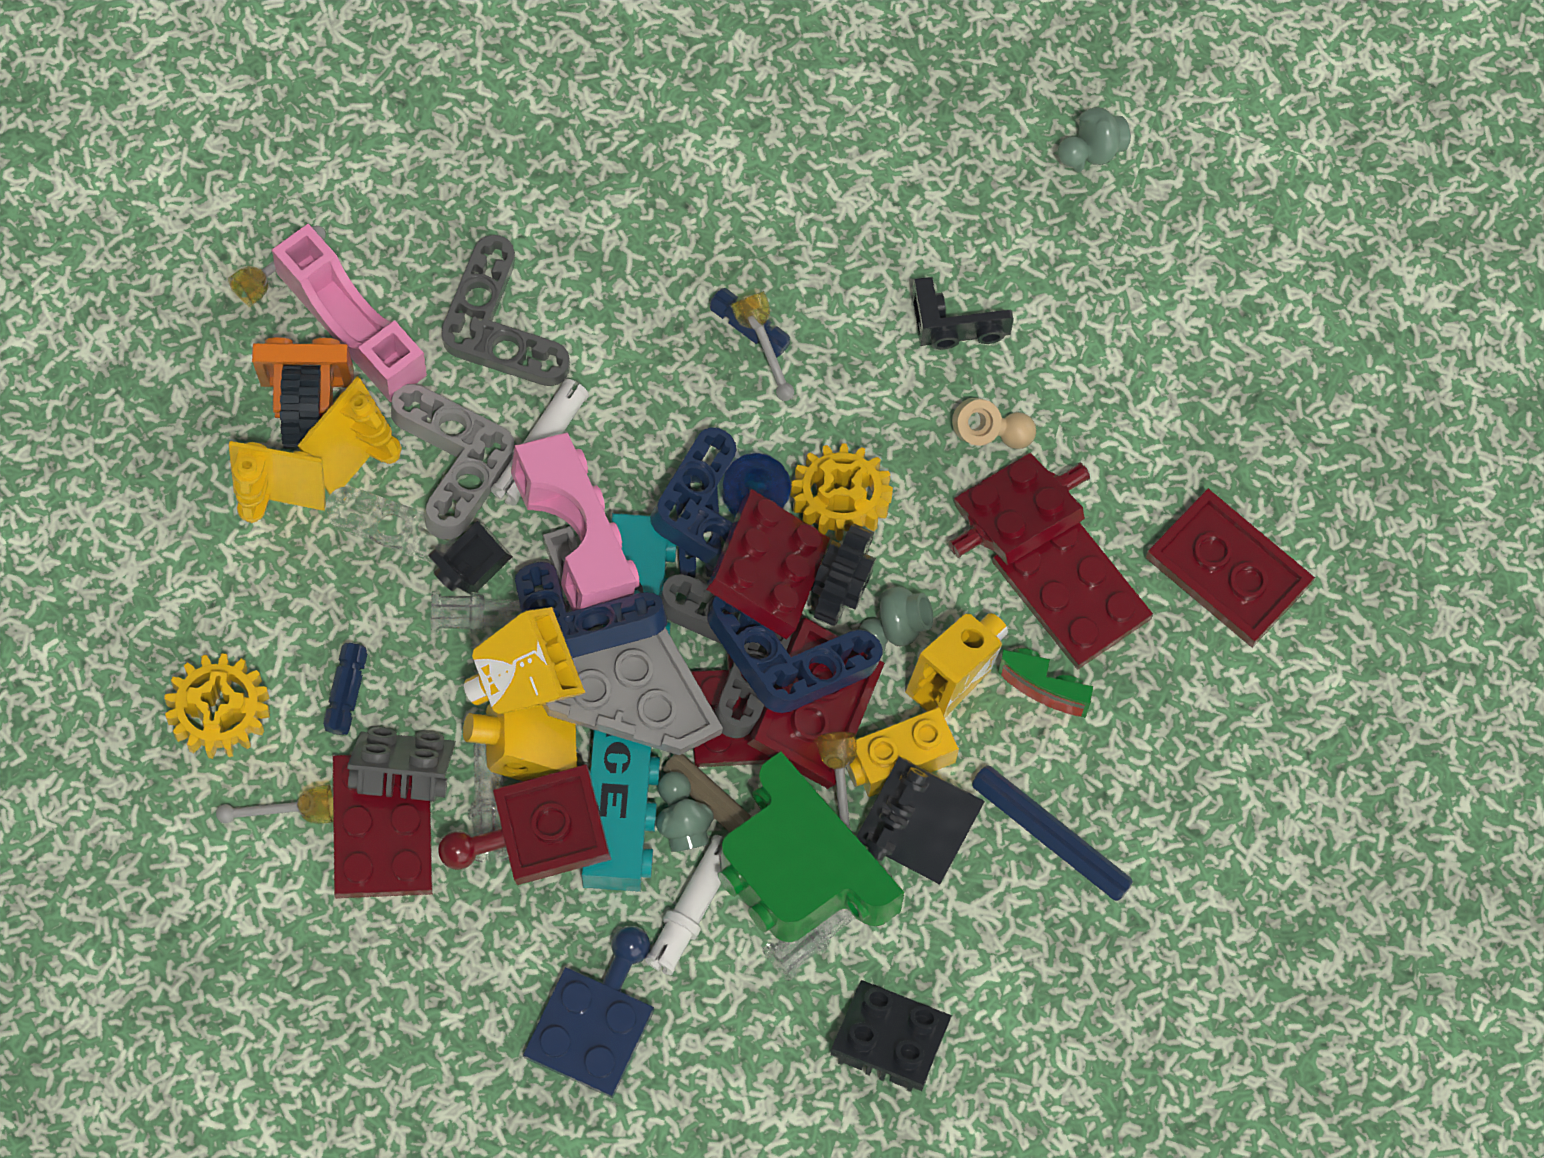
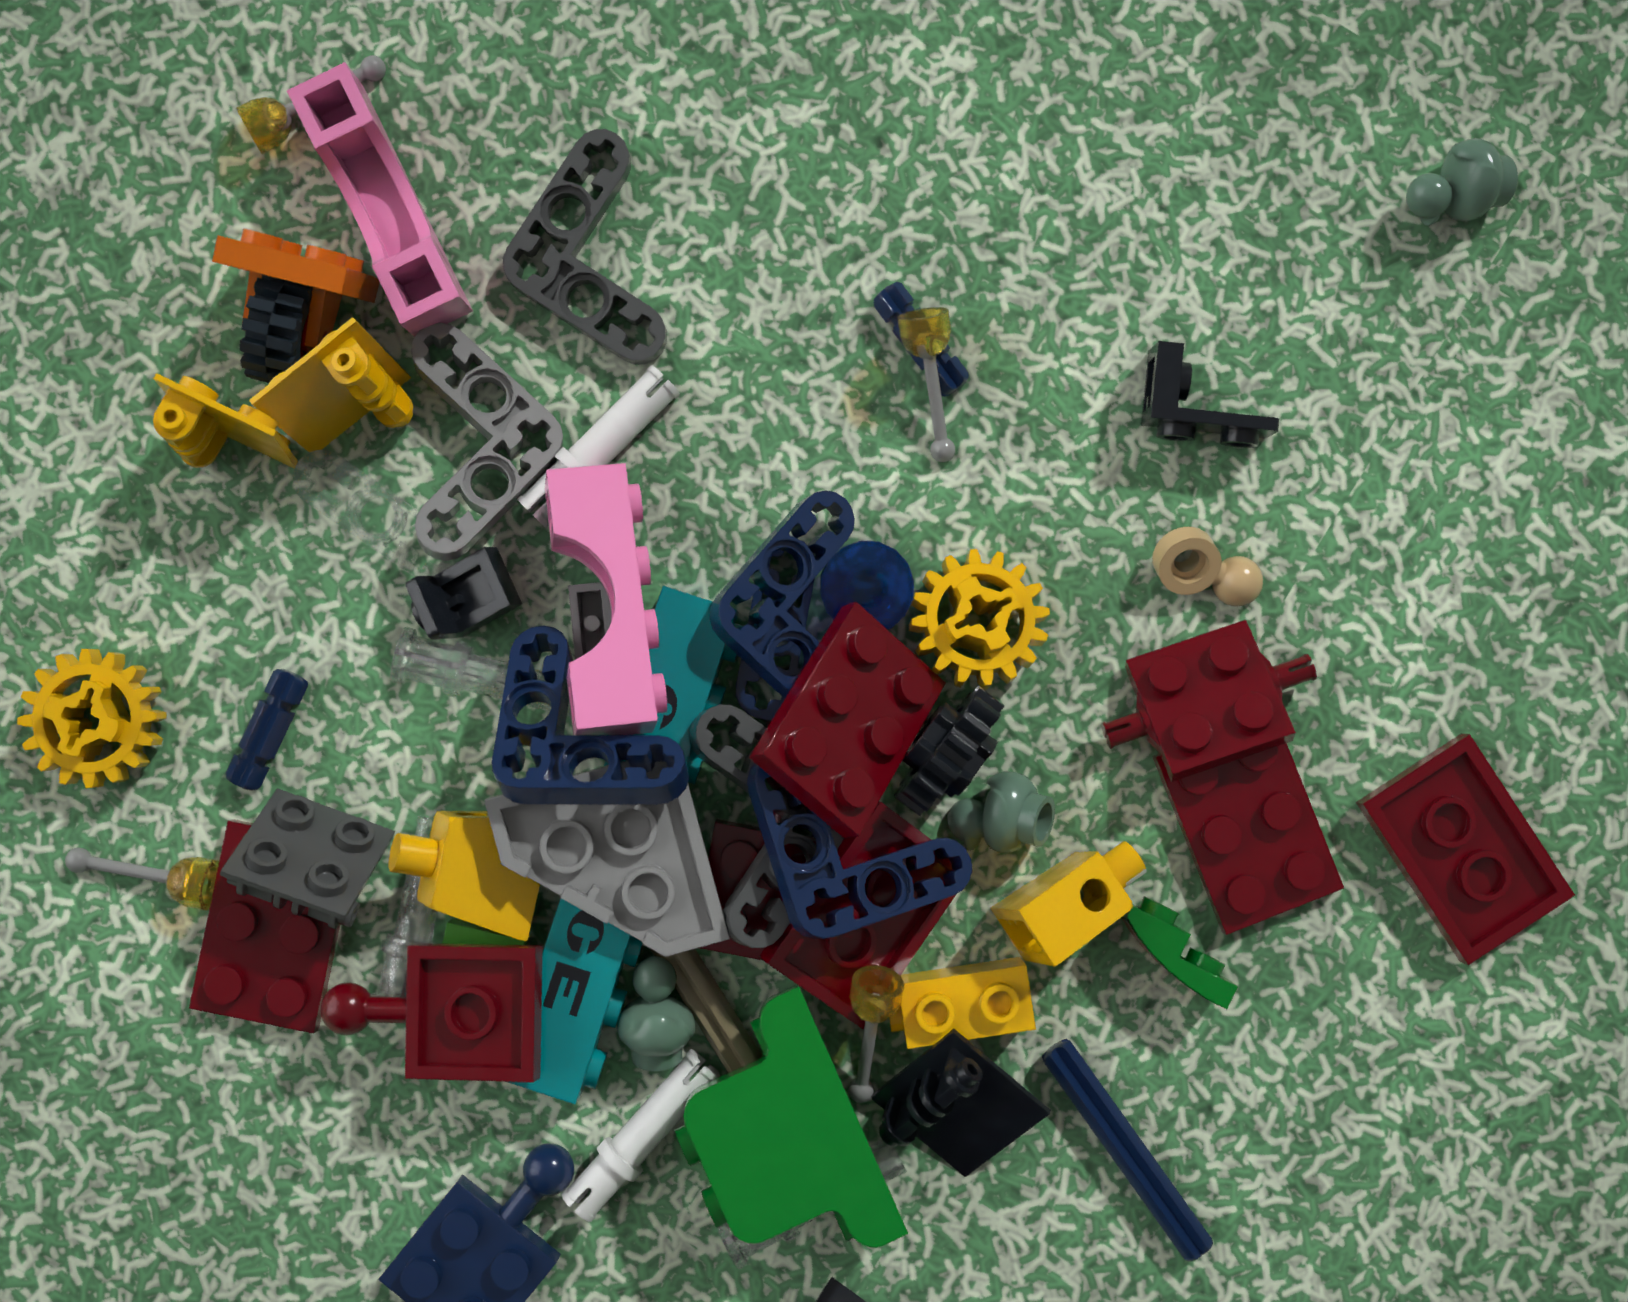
camera: 15 degrees right, 20 degrees up
(524, 665) = (476, 818): yellow torso -> none

